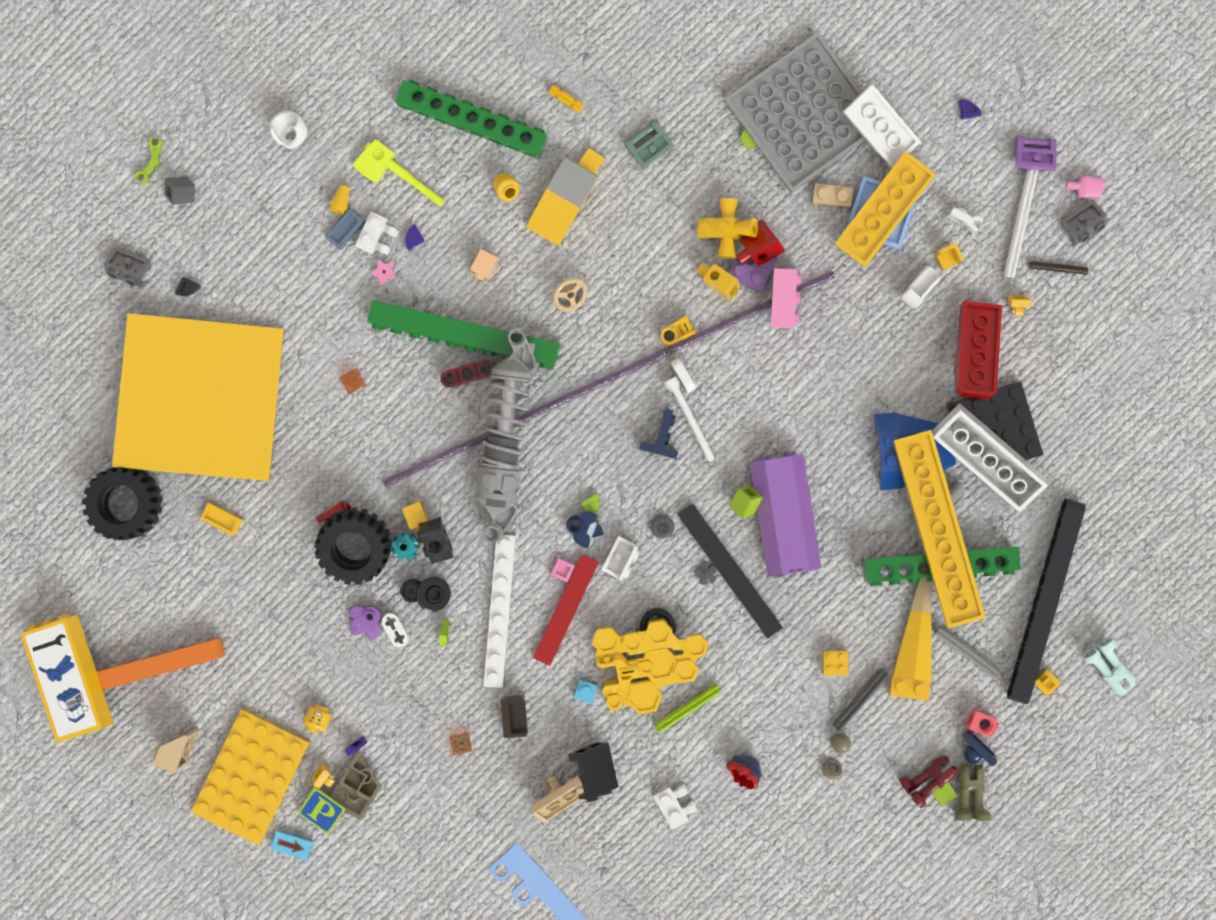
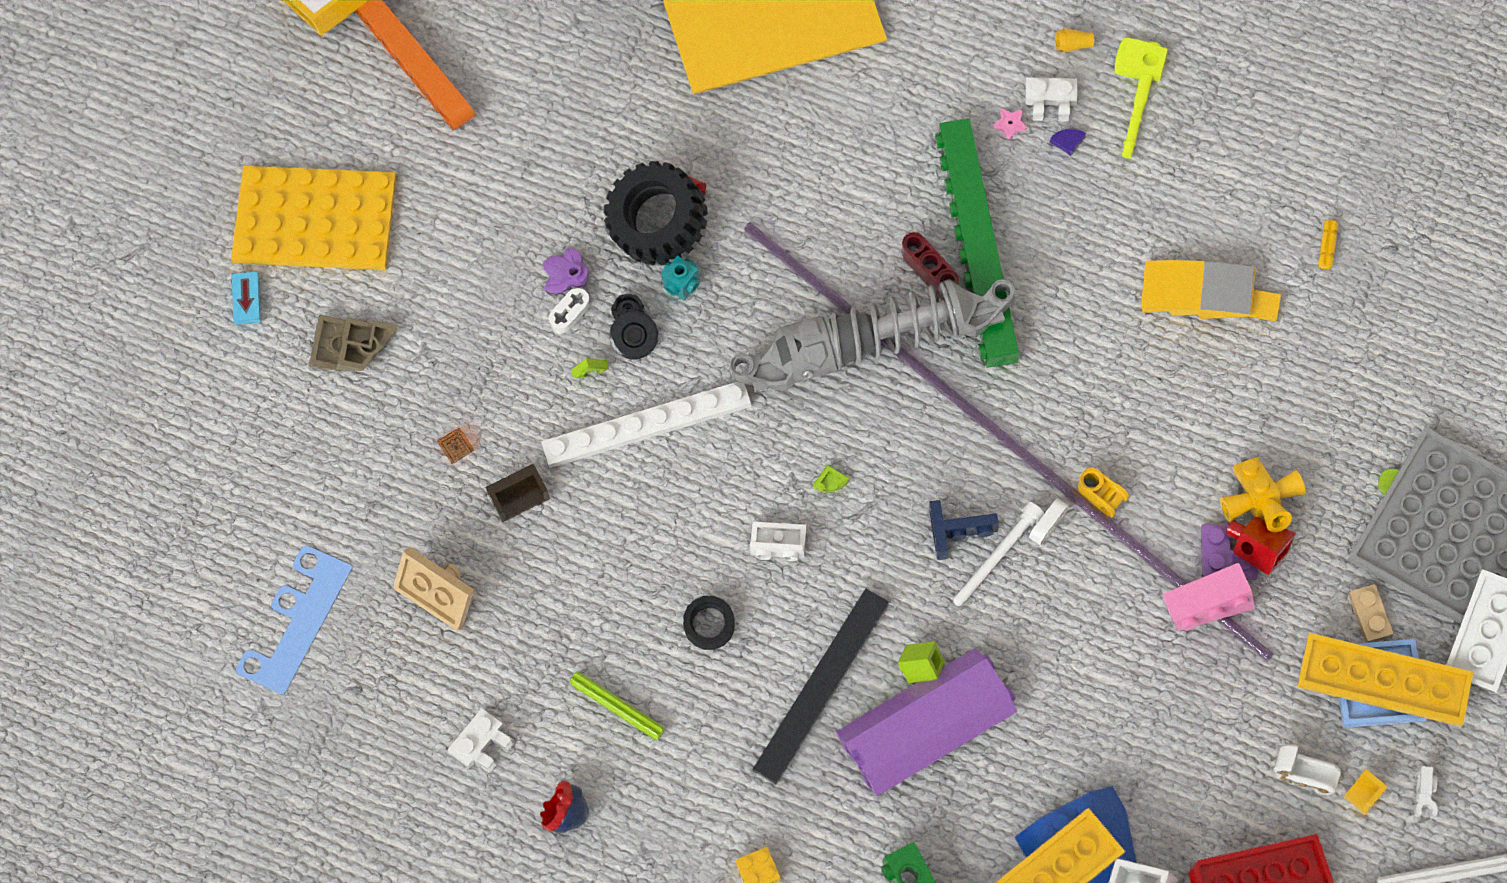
camera: 70 degrees right, 20 degrees down
(175, 753) = (315, 116): tan slope -> none
(221, 519) = (622, 62): yellow tile -> none
(317, 718) = (419, 262): yellow head -> none
(321, 810) = (304, 312): piece -> none
(322, 776) = (347, 298): yellow tile -> none
(345, 229) = (1040, 60): sand blue tile -> none
(352, 381) = (858, 141): clear orange plate -> none
(355, 746) = (395, 316): dark purple tile -> none
(410, 89) = (1248, 230): green brick -> none
(415, 514) = (724, 276): yellow brick -> none
(435, 531) = (716, 303): black brick -> none
(484, 265) = (1073, 231): light nougat brick -> none
(506, 187) = (1183, 215): yellow head -> none
(563, 569) = (732, 479): bright pink tile -> none
(566, 609) = (682, 502): red tile -> none
(568, 291) = (1094, 335): tan piece -> none
(585, 691) = (586, 569): medium azure plate -> none
(587, 528) = (799, 485): dark blue plate -> none
(595, 770) = (488, 615): black panel -> none
(652, 148) = (1317, 368): sand green plate -> none
(657, 664) = (659, 637): yellow piece -> none
(668, 533) = (839, 567): dark grey piece -> none
(706, 574) = (803, 658): dark grey plant -> none
(725, 285) = (1190, 516): yellow torso -> none

